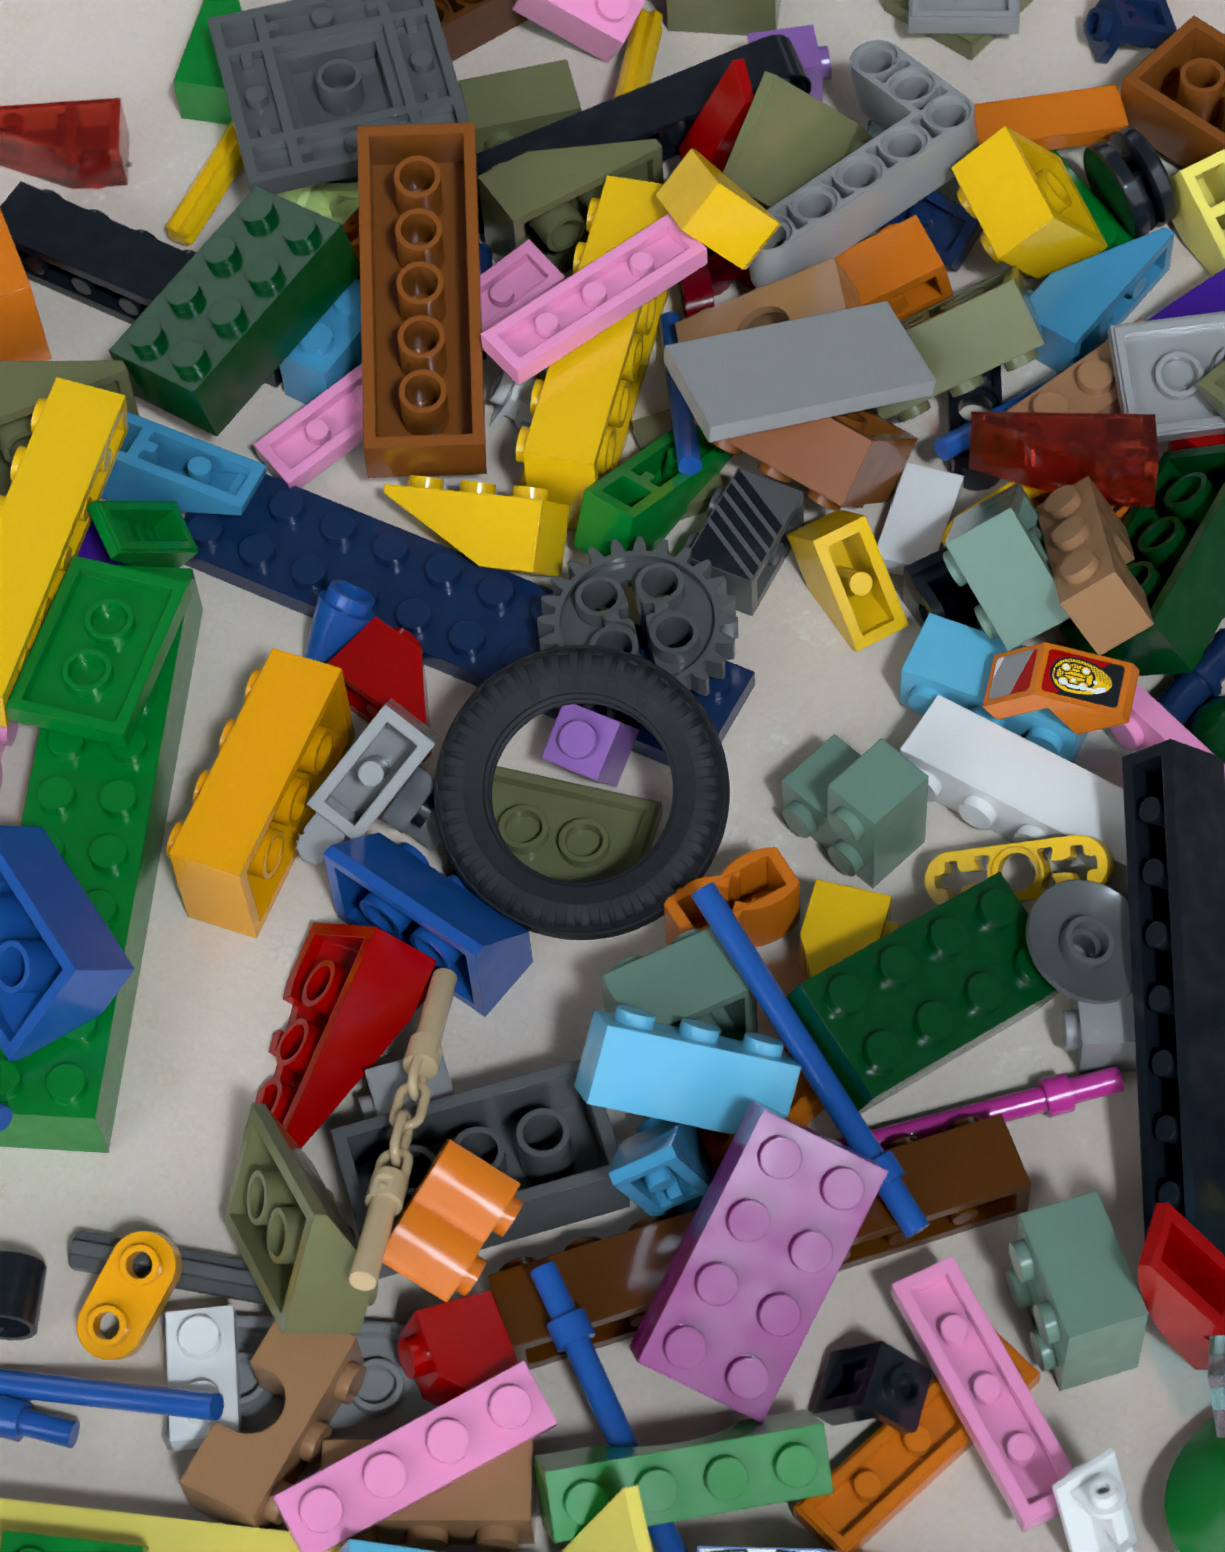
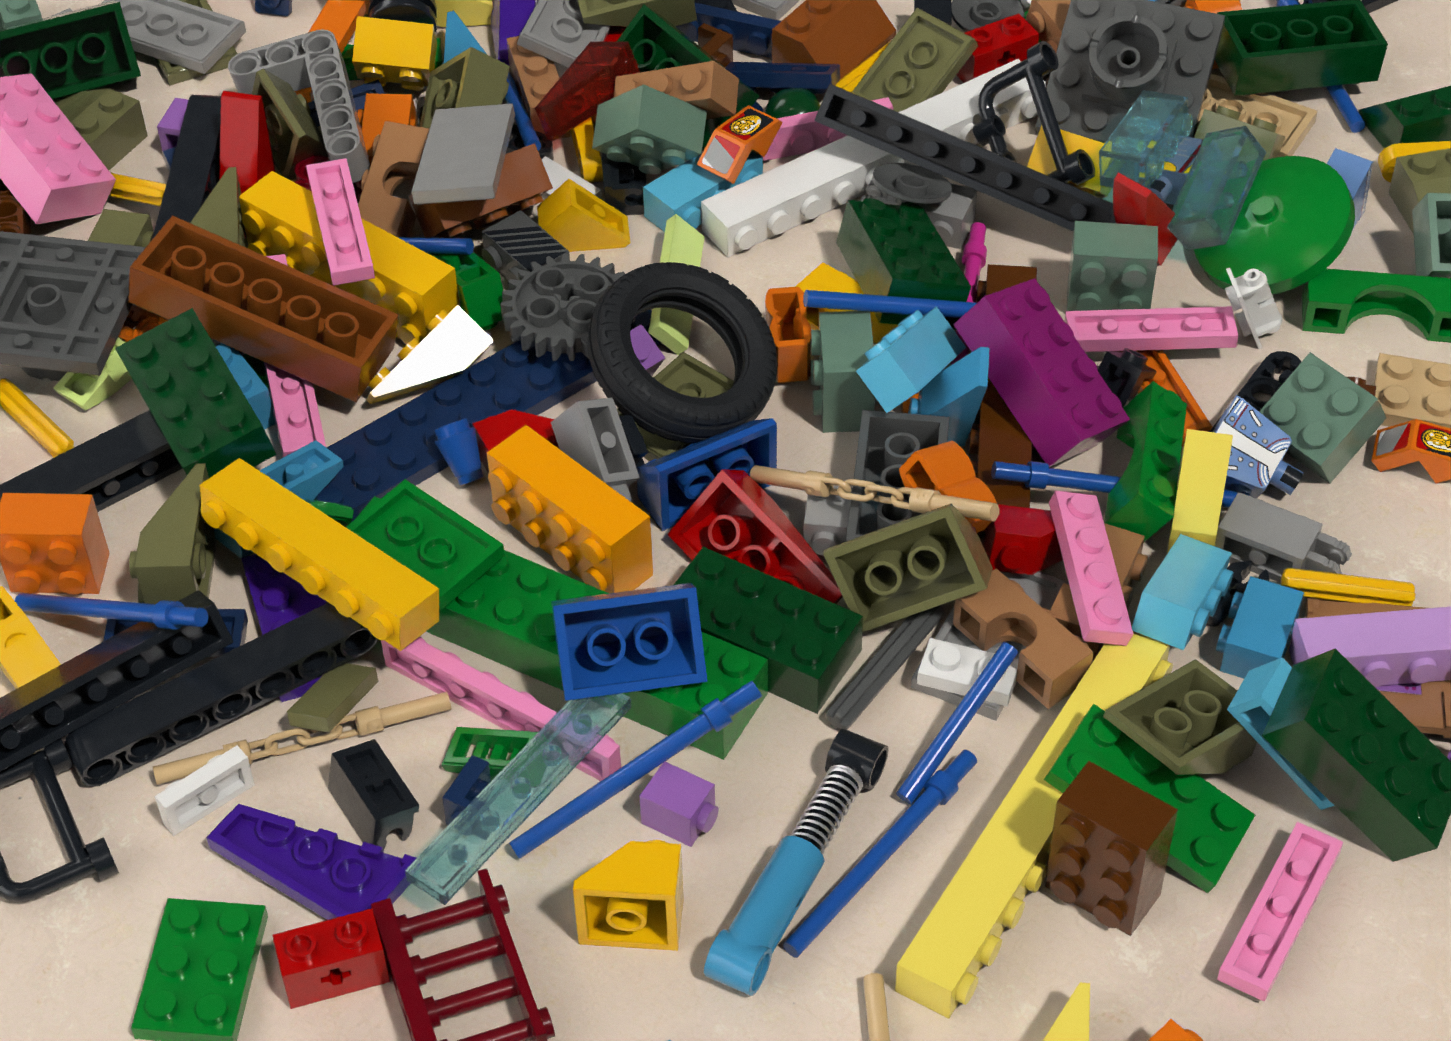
camera: 70 degrees left, 10 degrees down
(131, 1299) = (889, 693): light orange plate -> none
(177, 1095) = (800, 634): none -> dark green brick
(716, 210) = (314, 143): yellow slope -> none
(788, 734) = (680, 245): none -> yellowish green tile
(858, 807) = (759, 256): sand green brick -> none
(1062, 849) = (819, 221): yellow beam -> none

